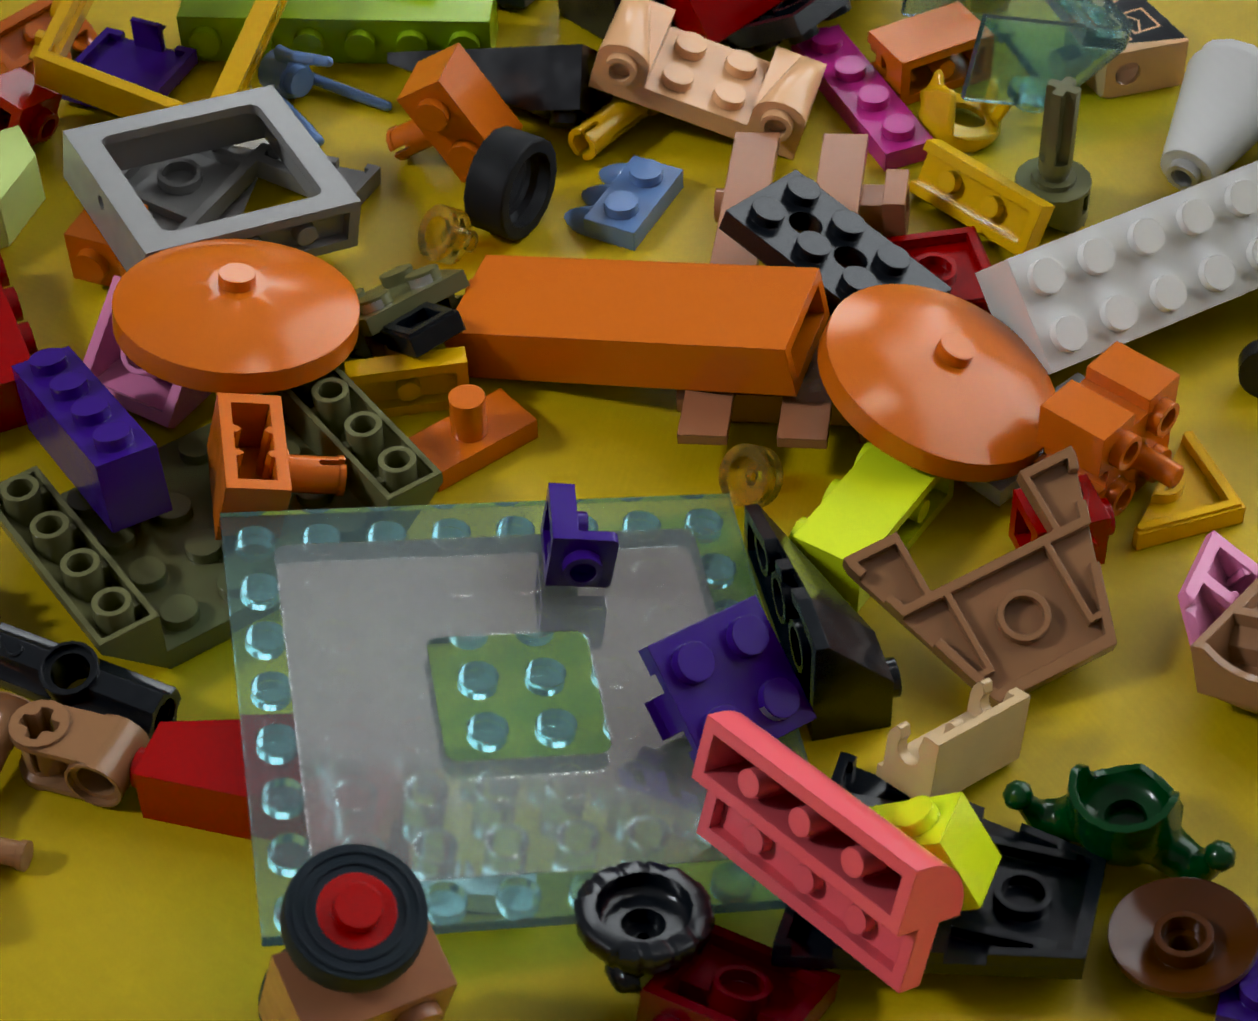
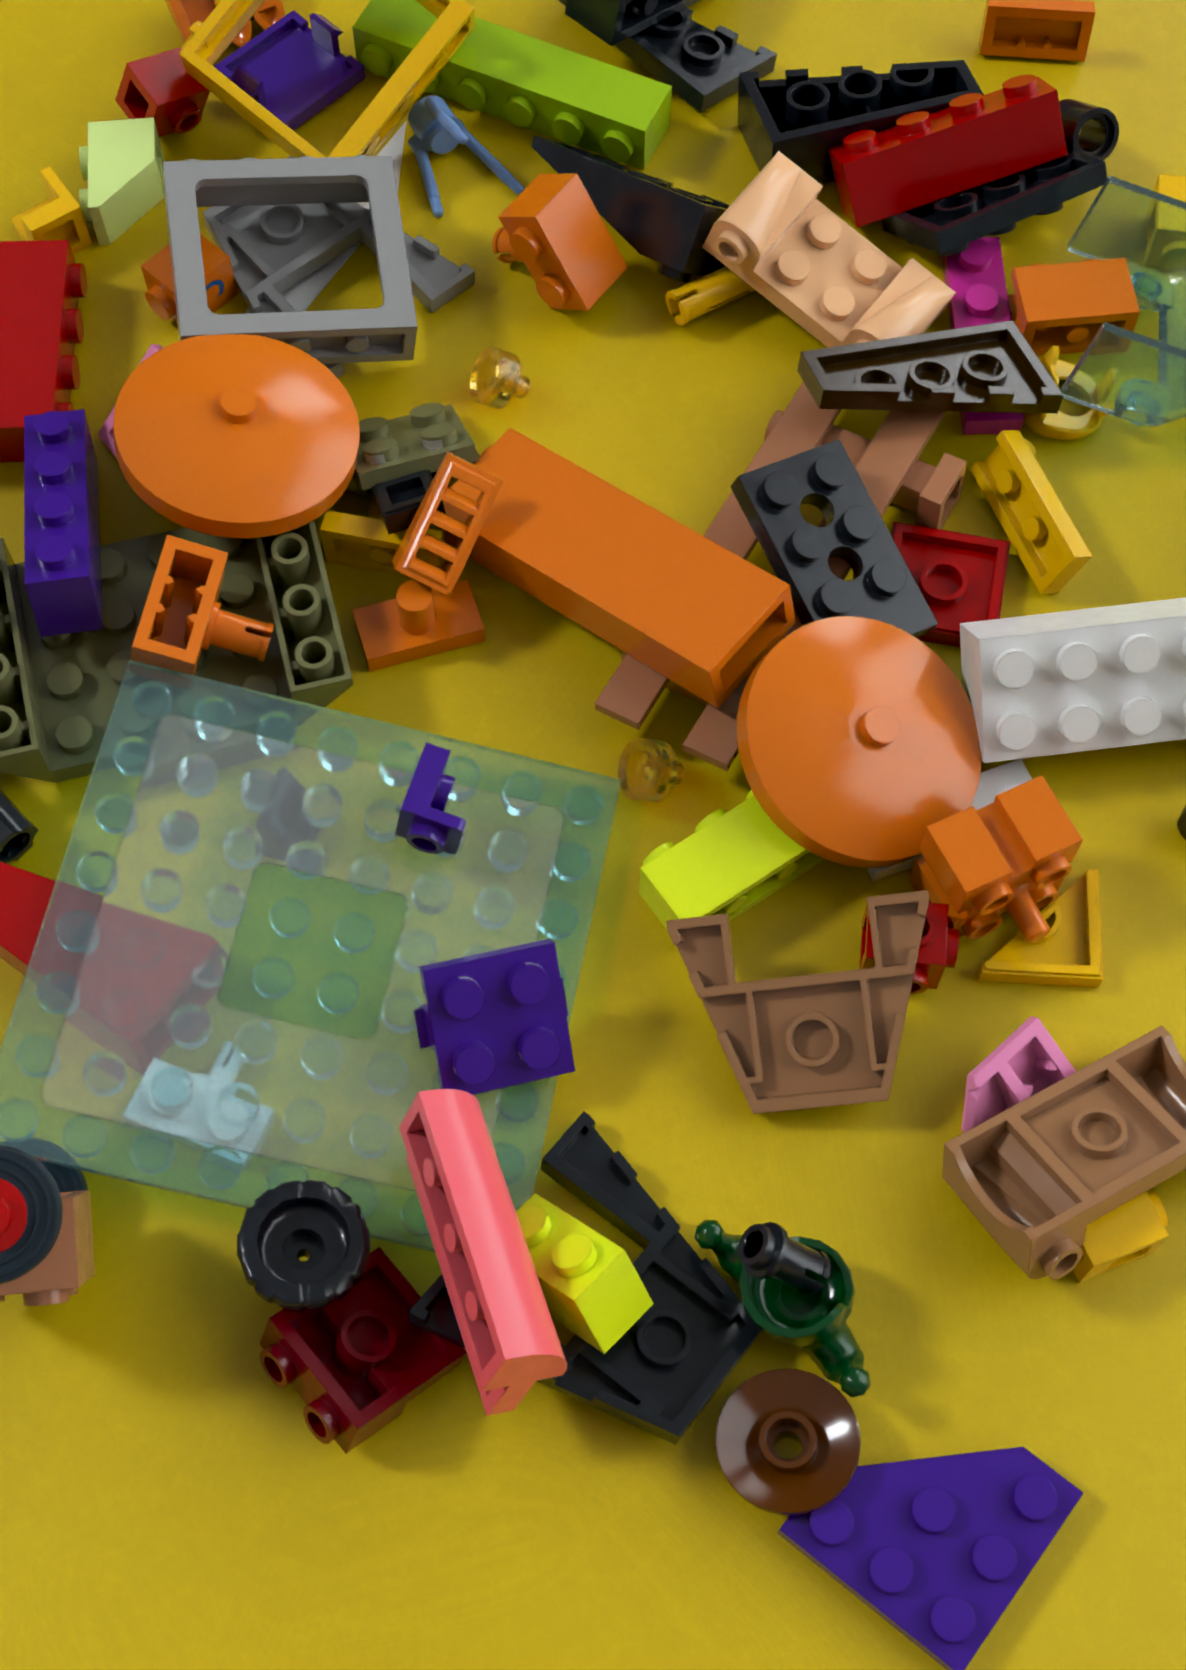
camera: 20 degrees right, 20 degrees up
(445, 363) = (458, 554): none -> orange slope
(510, 183) = (575, 343): black tyre -> none
(627, 202) = (693, 392): medium blue plate -> none
(821, 636) = (620, 996): black wedge -> none
(845, 111) = (934, 371): none -> dark brown wing
(960, 749) = (682, 1156): tan hinge -> none
(1055, 173) = (1113, 515): olive piece -> none
(1091, 762) = (771, 1253): none -> black pin

